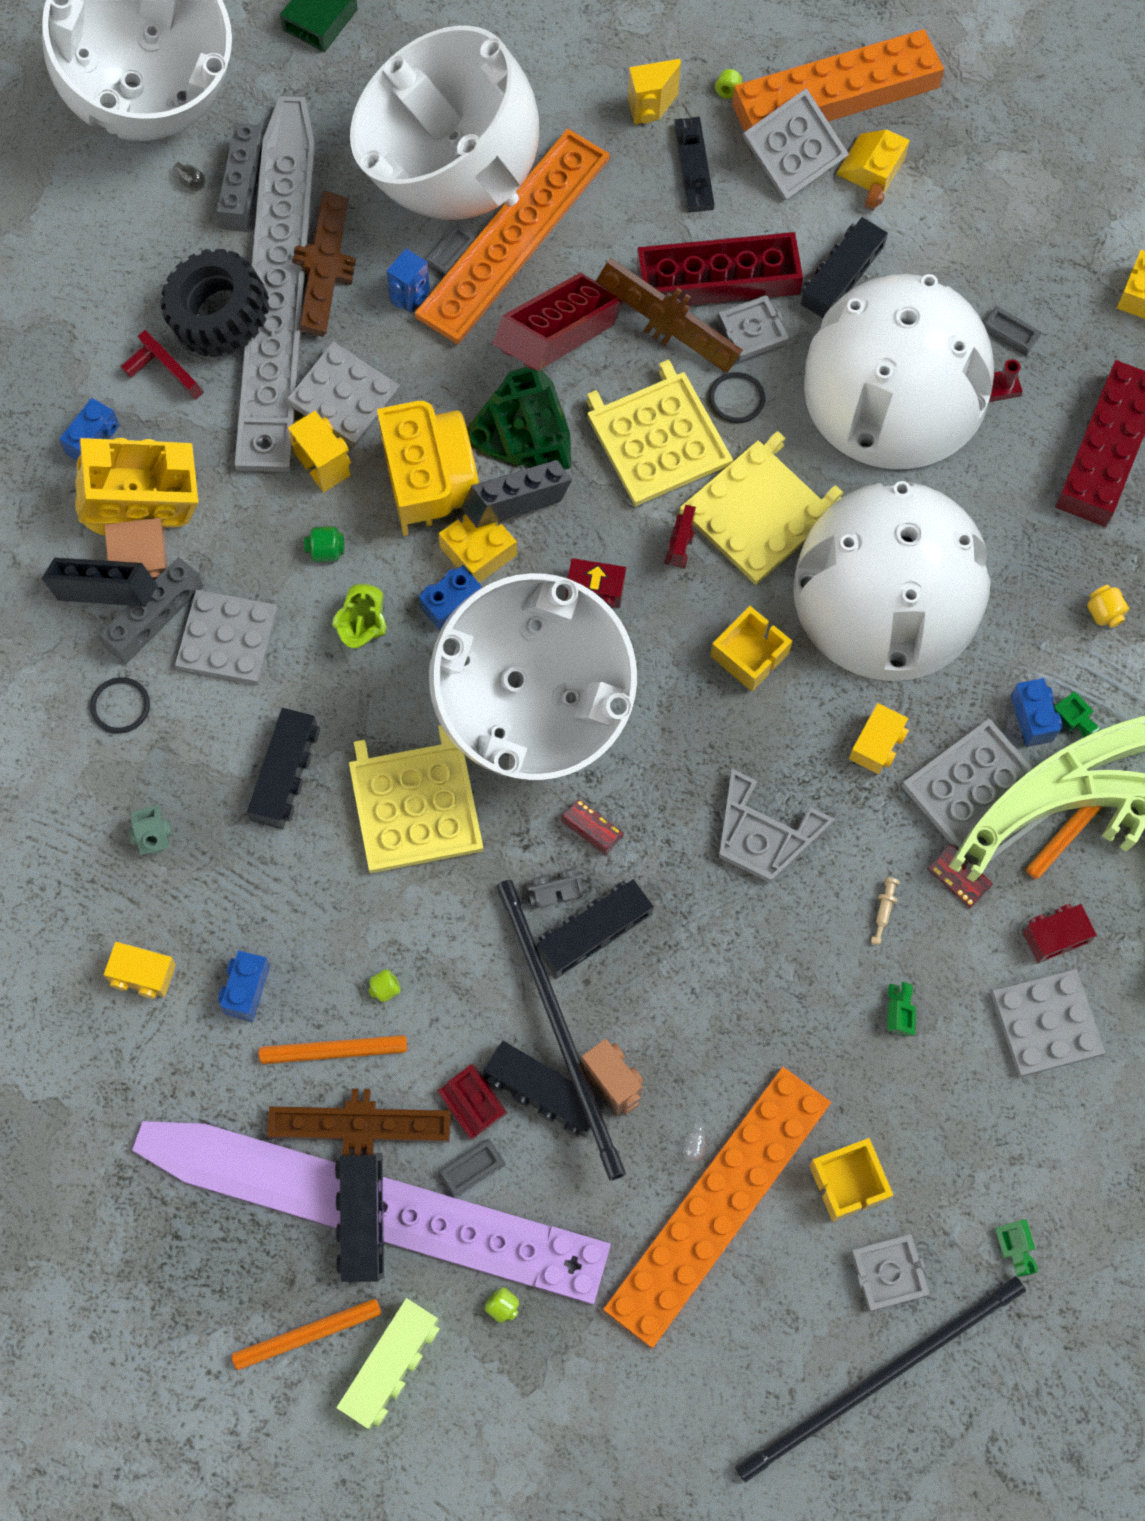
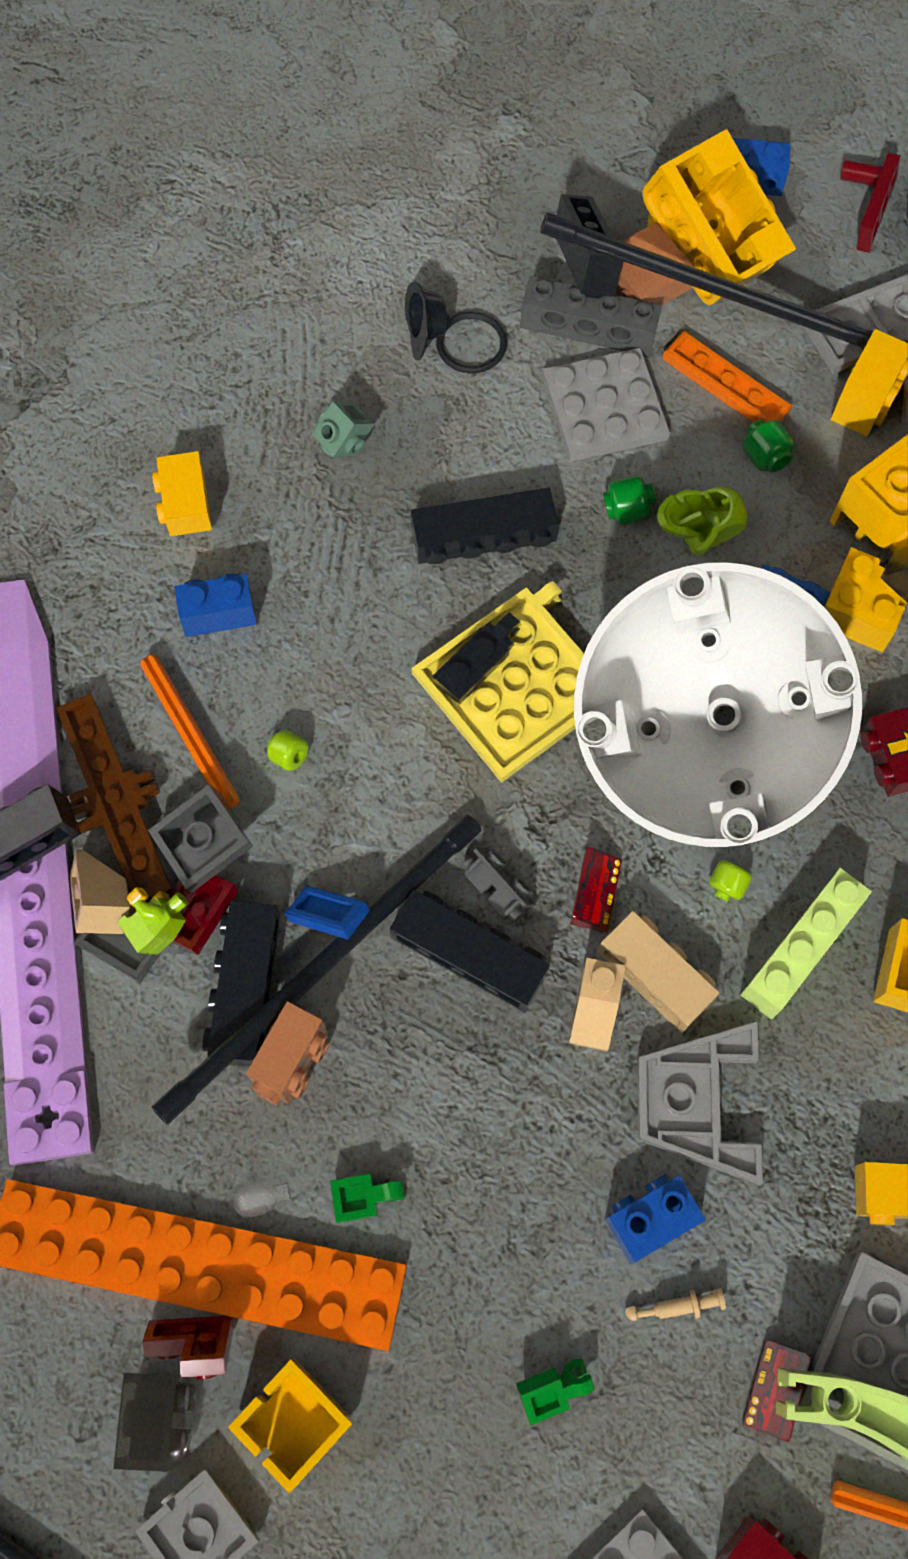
camera: 65 degrees right, 0 degrees up
(87, 728) = (425, 317): none -> black piece
(109, 587) = (571, 232): none -> black piece
(254, 545) = (725, 380): none -> orange tile
(317, 659) = (629, 499): none -> green head
(388, 821) = (477, 659): none -> black hinge
(425, 1071) = (200, 837): none -> dark grey plate
(431, 1163) = (97, 896): none -> tan slope
(474, 1126) = (154, 922): none -> lime piece
(522, 1009) = (327, 912): none -> blue tile
(630, 737) = (730, 880): none -> lime piece
(668, 813) = (659, 971): none -> tan brick
(671, 863) = (597, 1004): none -> tan slope
(696, 711) = (806, 944): none -> yellowish green brick
(726, 1077) = (357, 1197): none -> green plate
(772, 1215) = (199, 1340): none -> dark red plate
(810, 1265) = (153, 1421): none -> clear smoke brick
(825, 896) = (653, 1219): none -> blue brick

